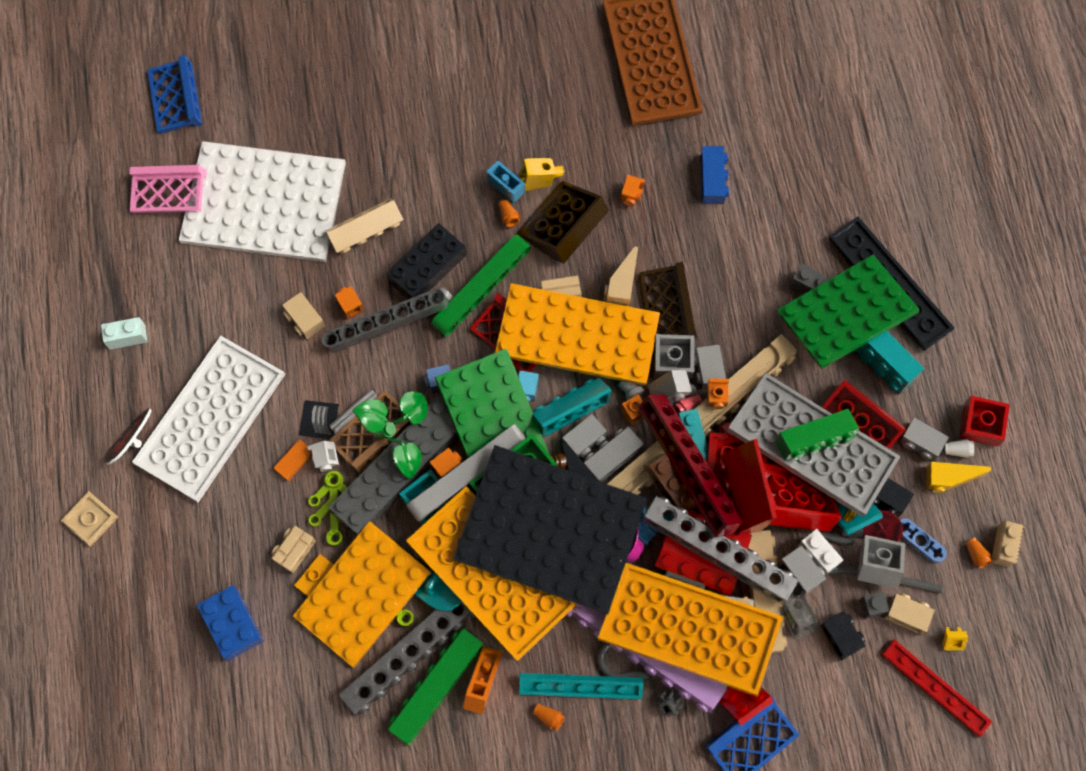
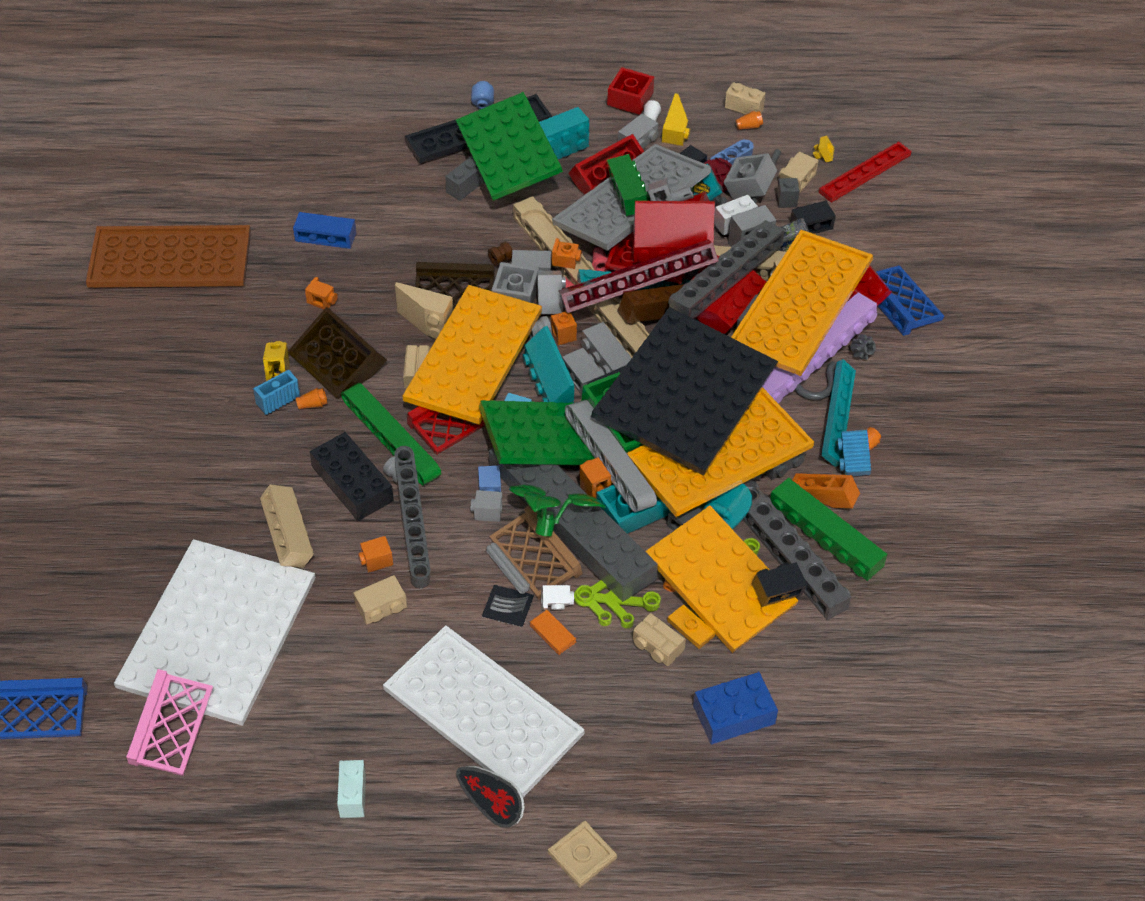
camera: 80 degrees left, 20 degrees down
(354, 645) = (779, 584): none -> black brick
(414, 380) = (487, 506): none -> light grey brick
(525, 704) = (855, 453): none -> dark azure brick
(719, 336) = (500, 253): none -> reddish brown wheel
(790, 473) = (662, 192): none -> light grey brick
(938, 276) = (482, 94): none -> medium blue head

